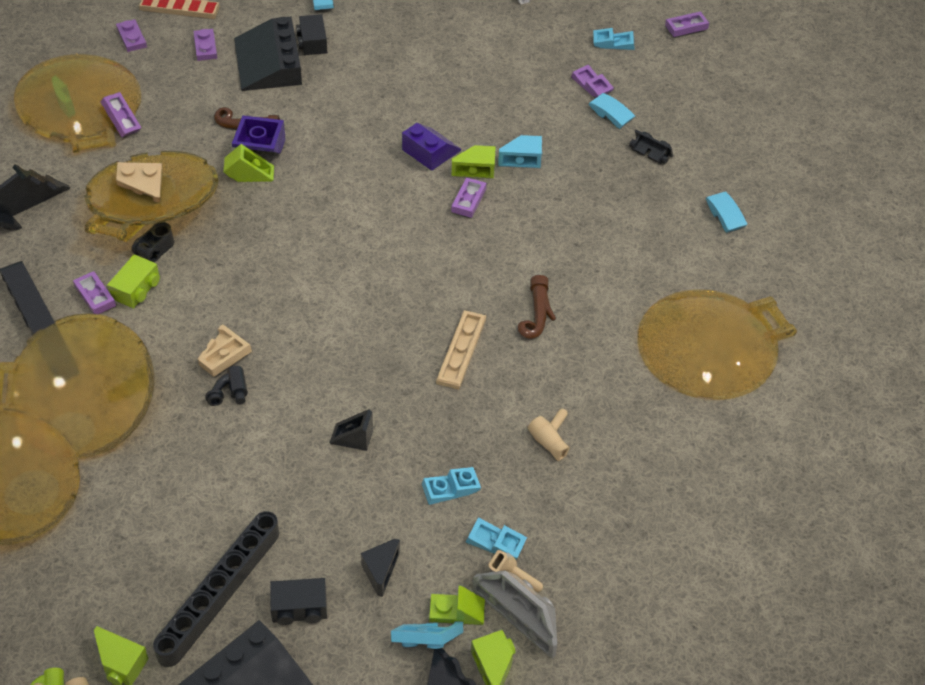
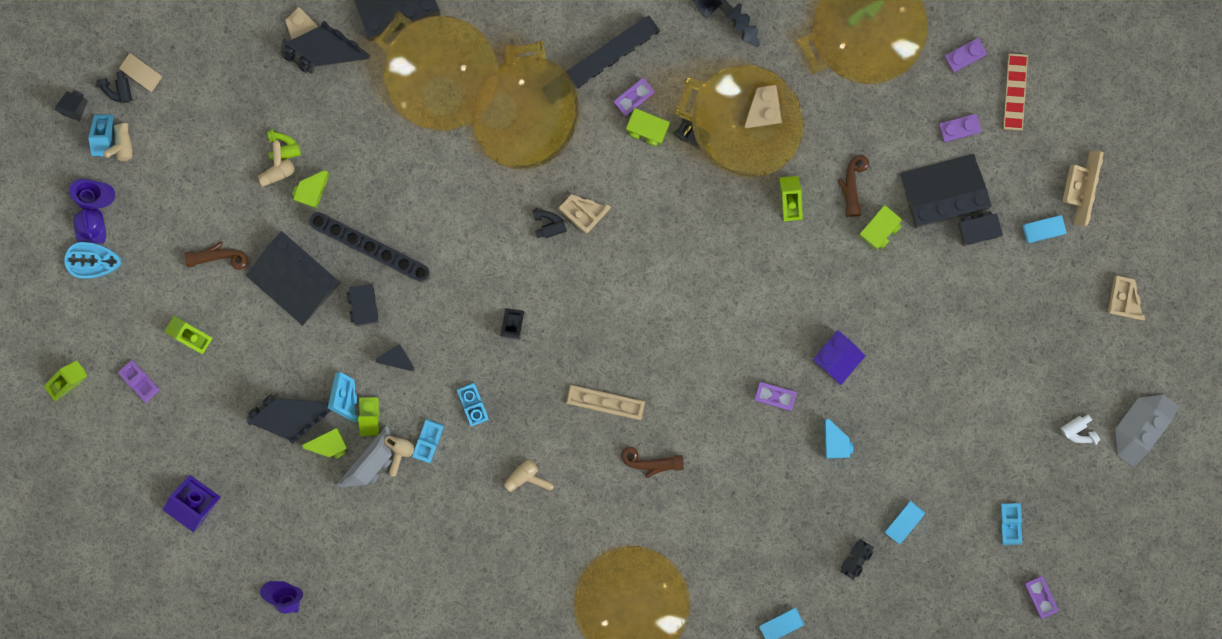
camera: 90 degrees right, 35 degrees up
(120, 114) = (842, 72): medium lavender piece -> none
(260, 134) = (821, 202): dark purple slope -> none
(296, 102) = (880, 228): none -> lime brick
(475, 162) = (818, 400): lime slope -> none
(591, 82) = (945, 503): medium lavender slope -> none

